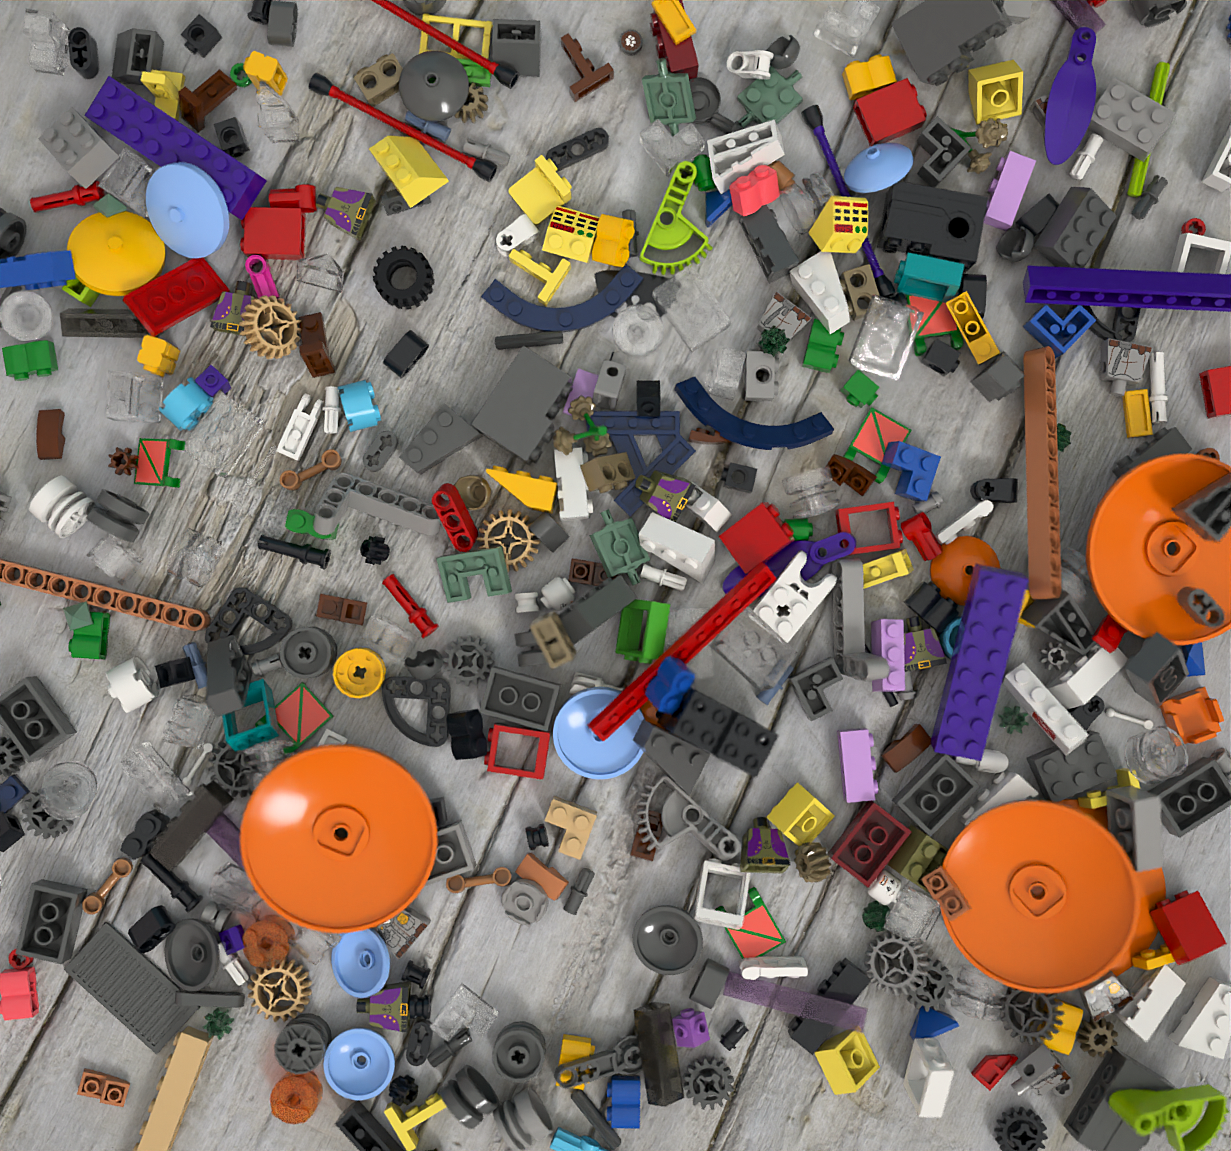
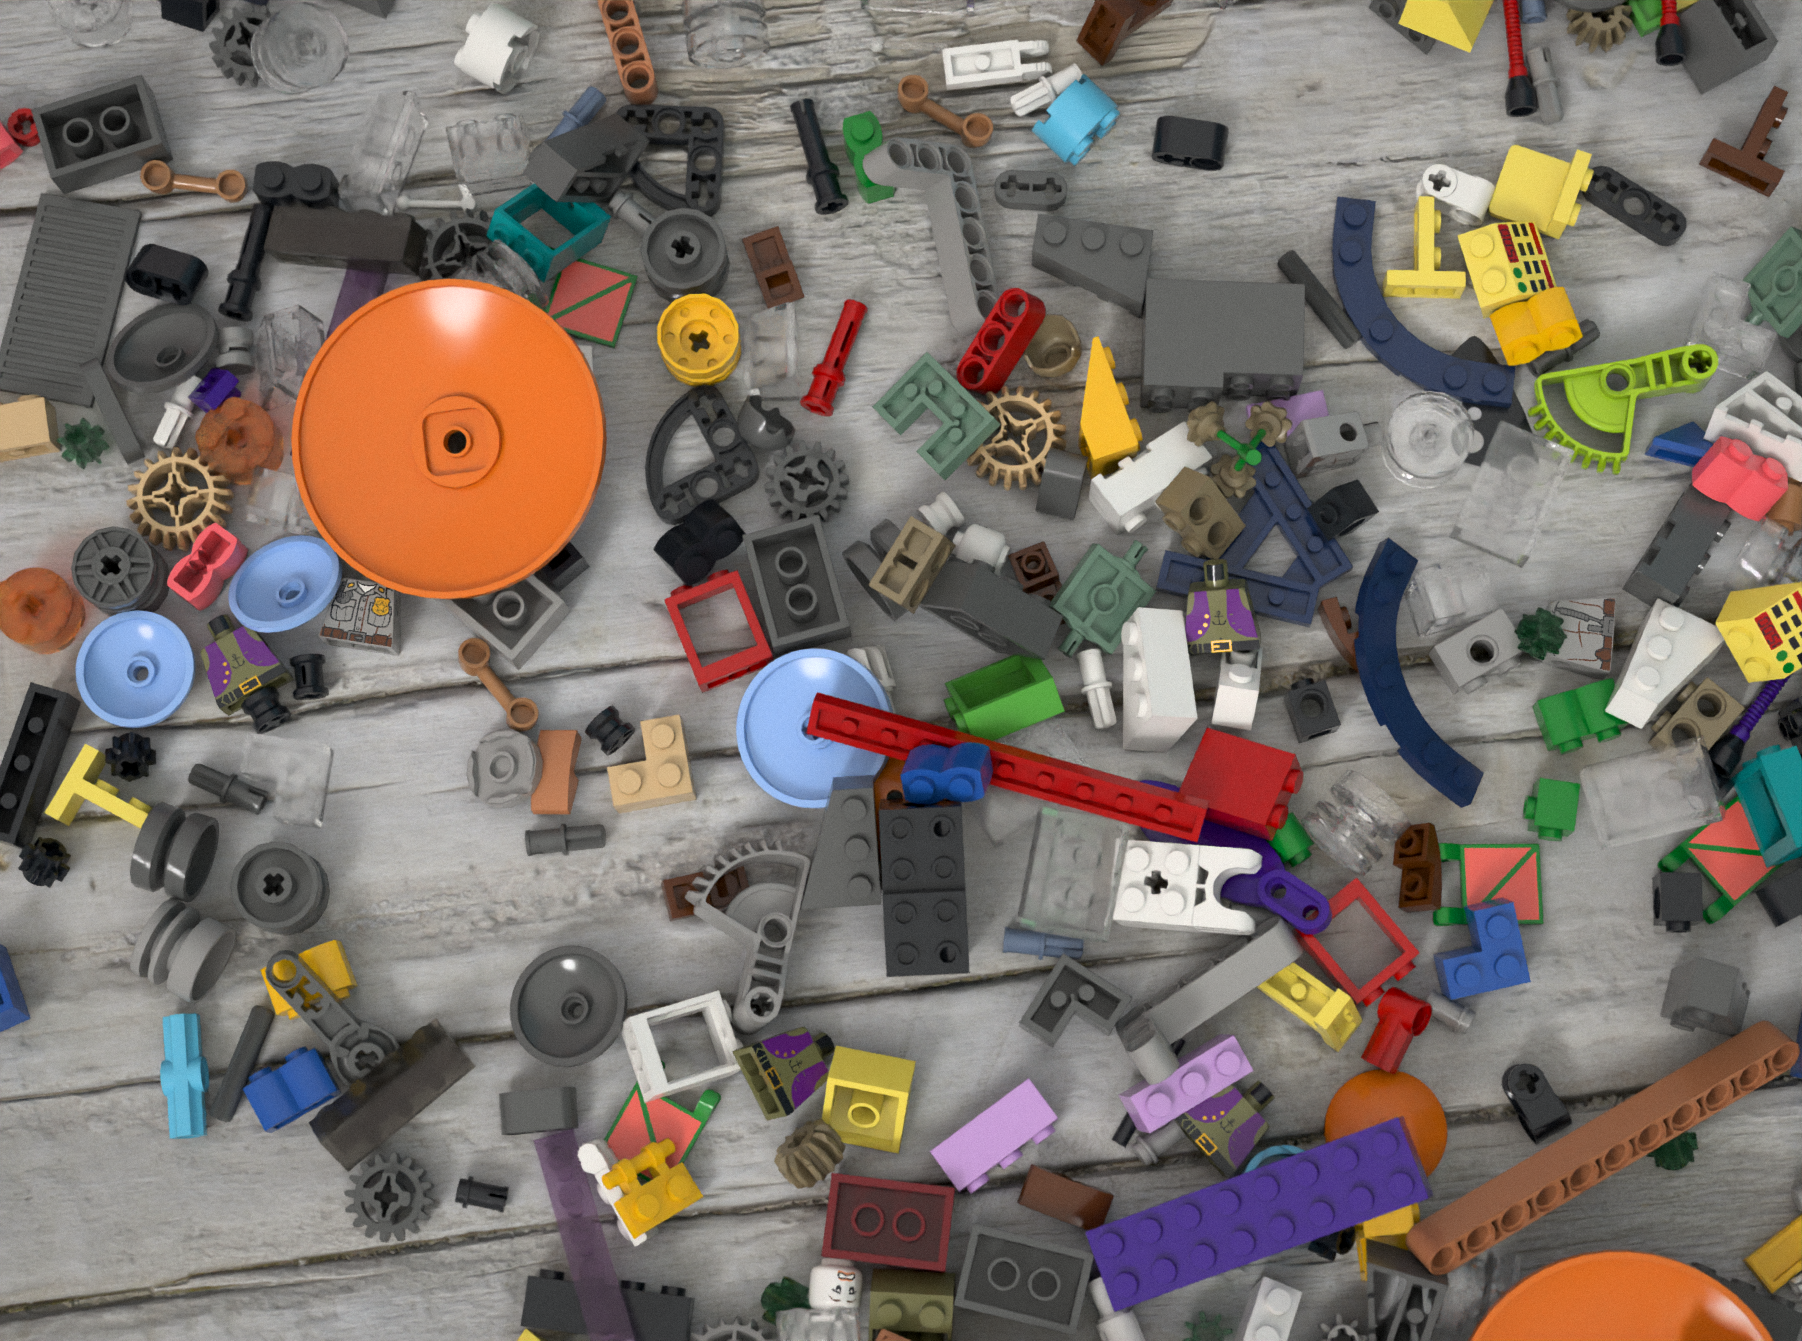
camera: 65 degrees right, 10 degrees down
(175, 672) = (548, 95): black brick -> none
(324, 992) = (202, 573): none -> coral brick
(374, 550) = (885, 262): black gear -> none
(395, 260) = (1299, 47): black tyre -> none
(424, 1043) = (209, 733): black beam -> none
(690, 1028) = (456, 1120): medium lavender brick -> none
(704, 174) = (1713, 393): green brick -> none
(791, 951) = (656, 1200): none -> yellow plate
(932, 607) = (1300, 1107): black brick -> none
(964, 521) = (1457, 1081): white hinge -> none
(973, 328) = (1752, 915): yellow slope -> none

